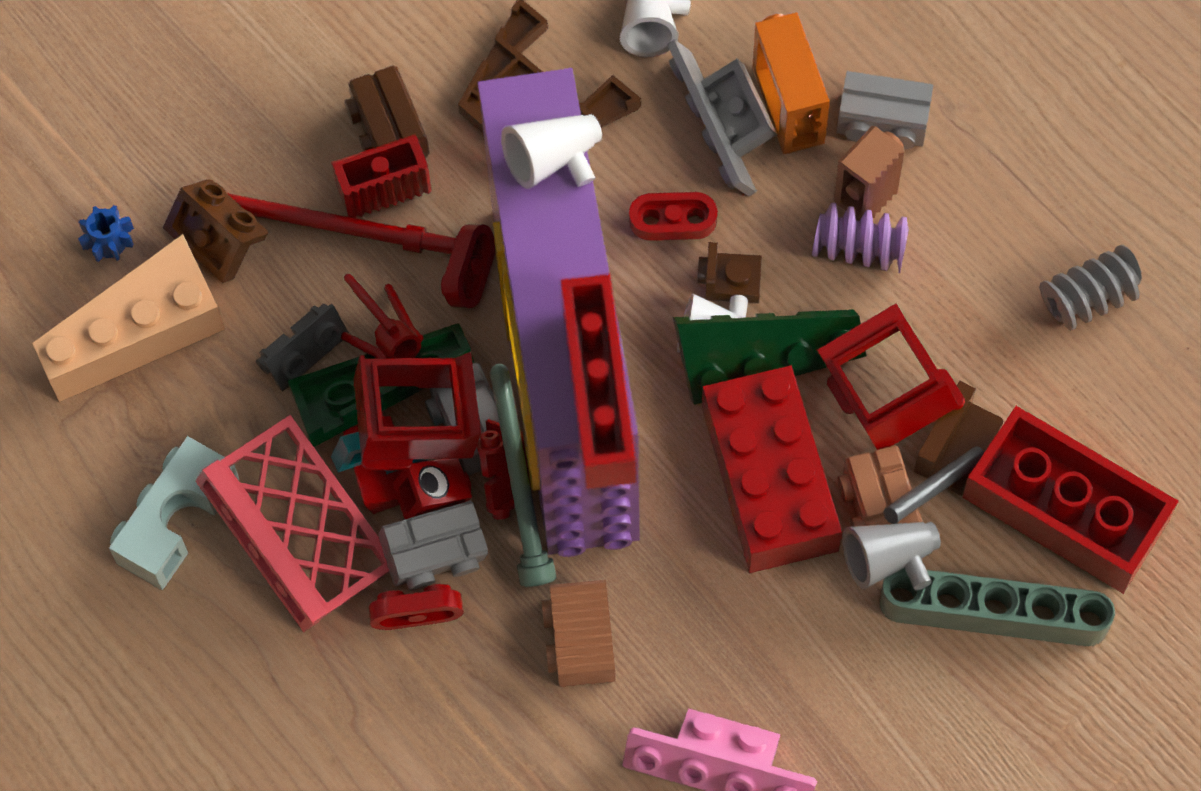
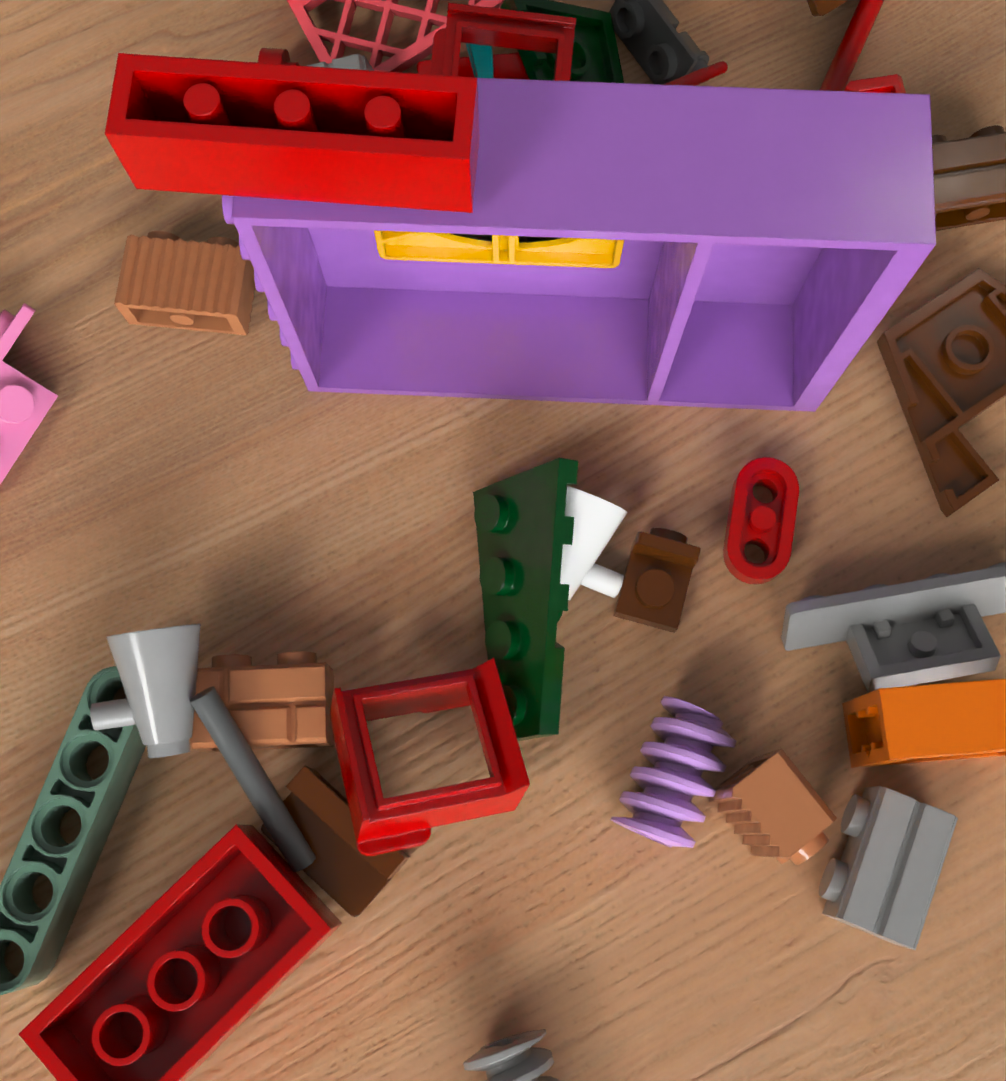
camera: 100 degrees right, 10 degrees up
(545, 146) = (774, 152): white piece -> none
(771, 469) = (342, 563): red brick -> none

